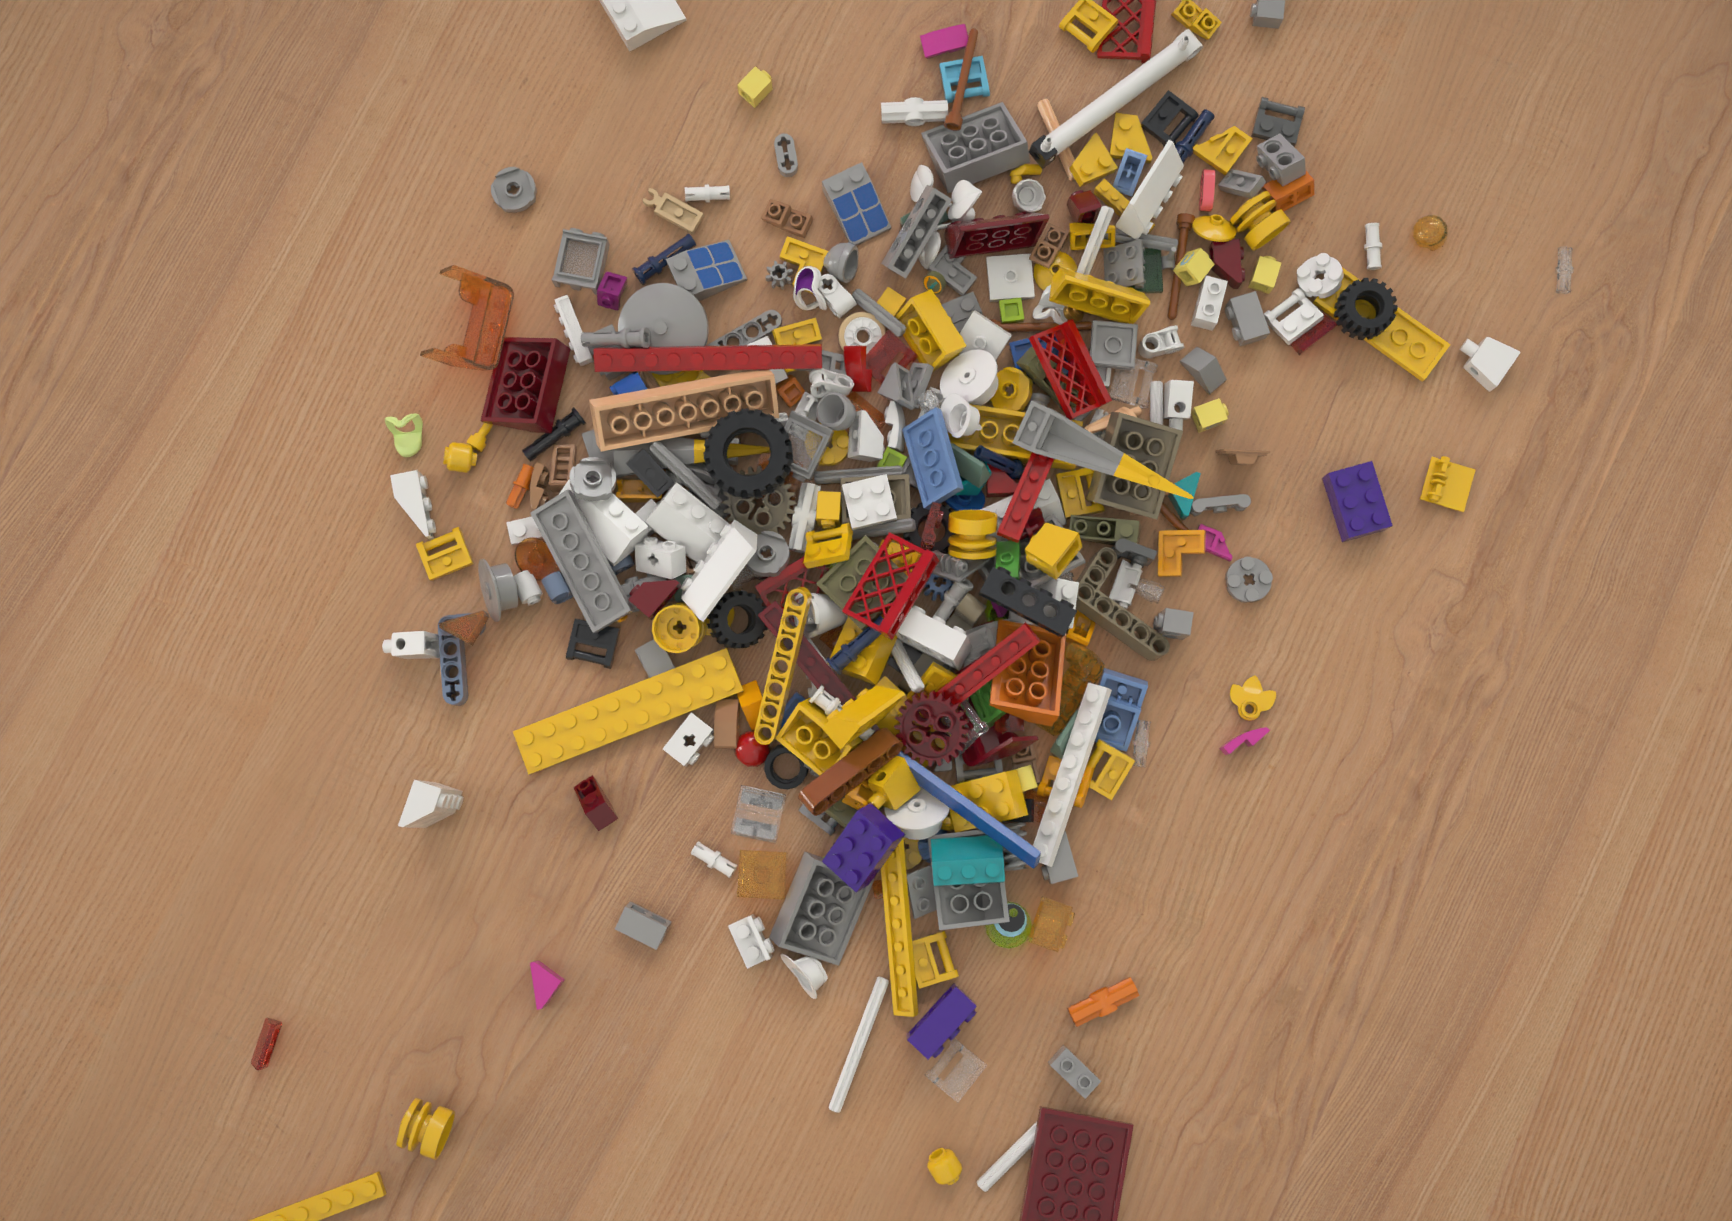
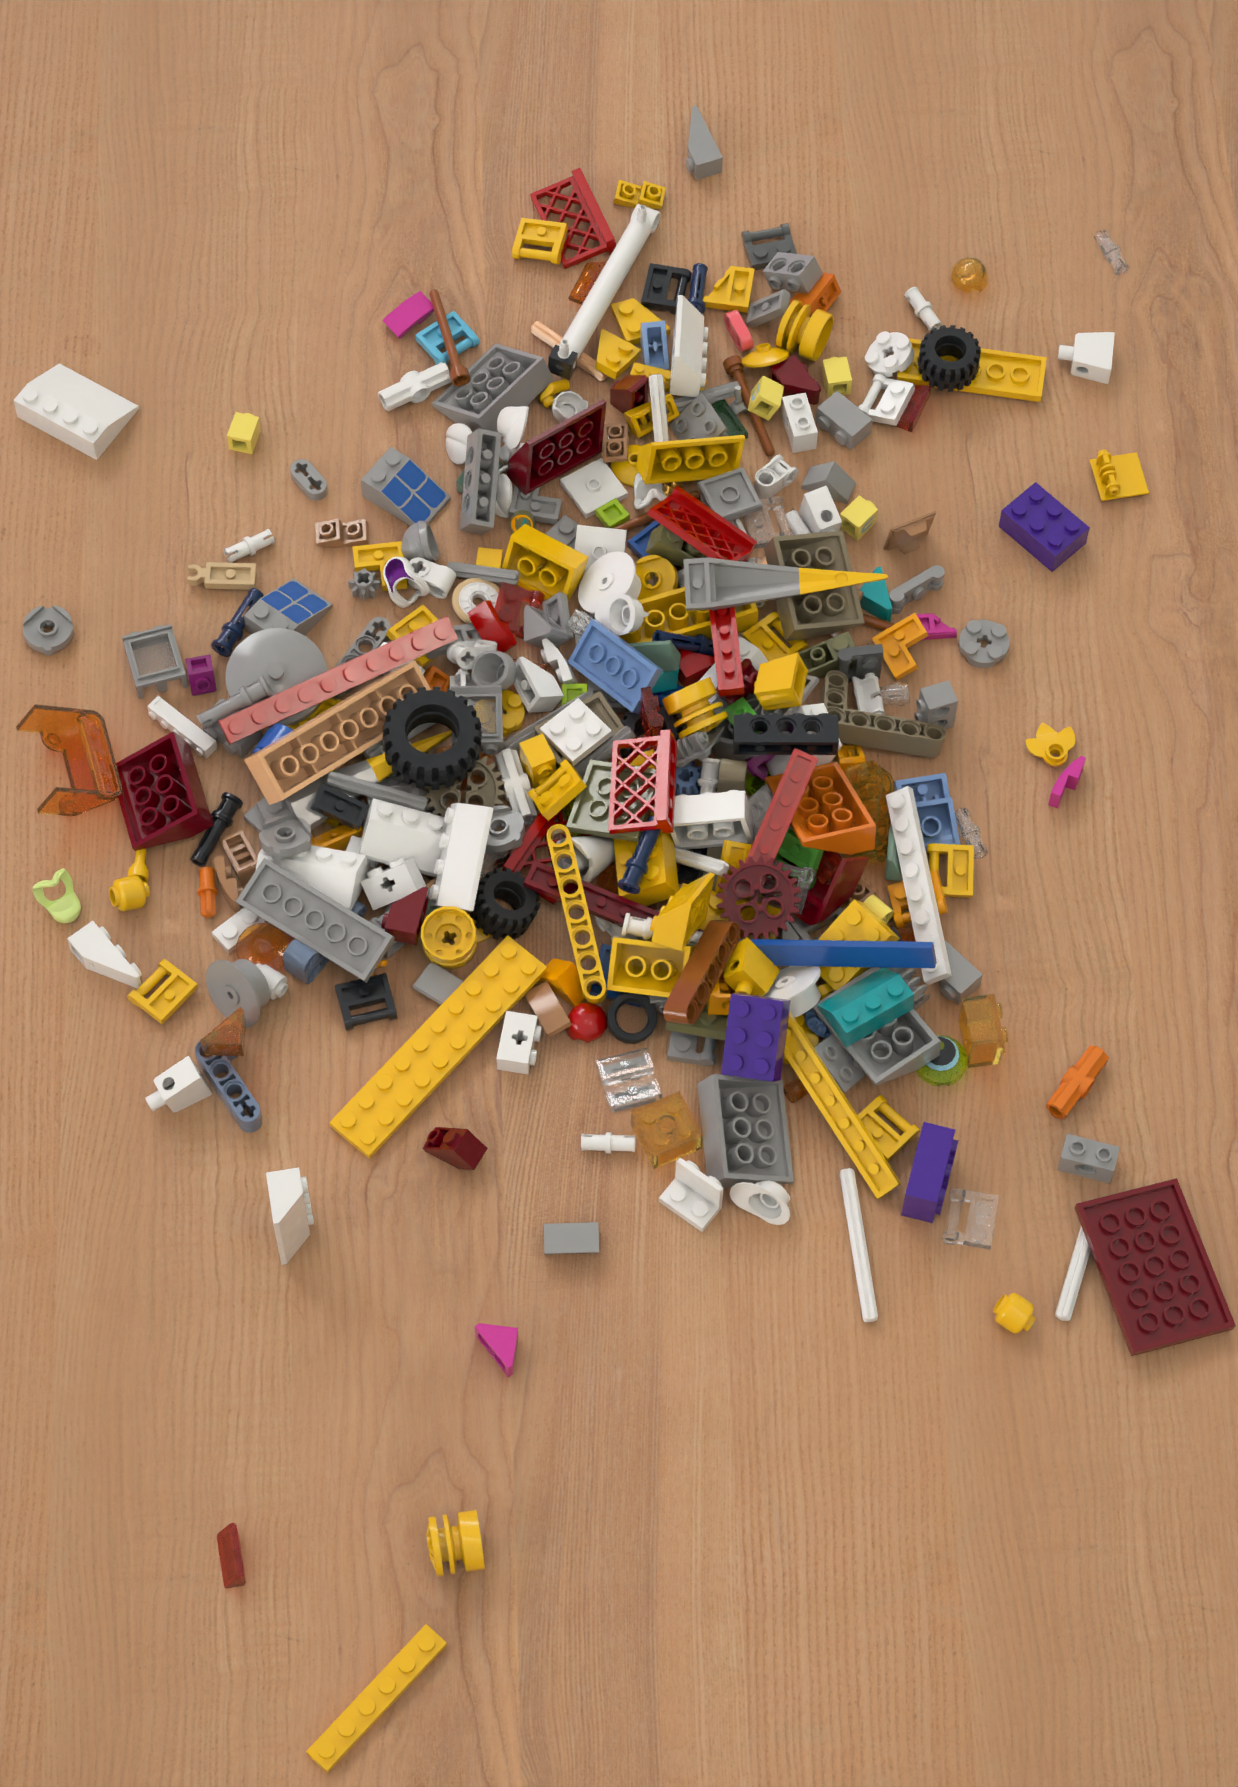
camera: 30 degrees left, 20 degrees down
(1107, 80) = (586, 281): none -> clear orange slope

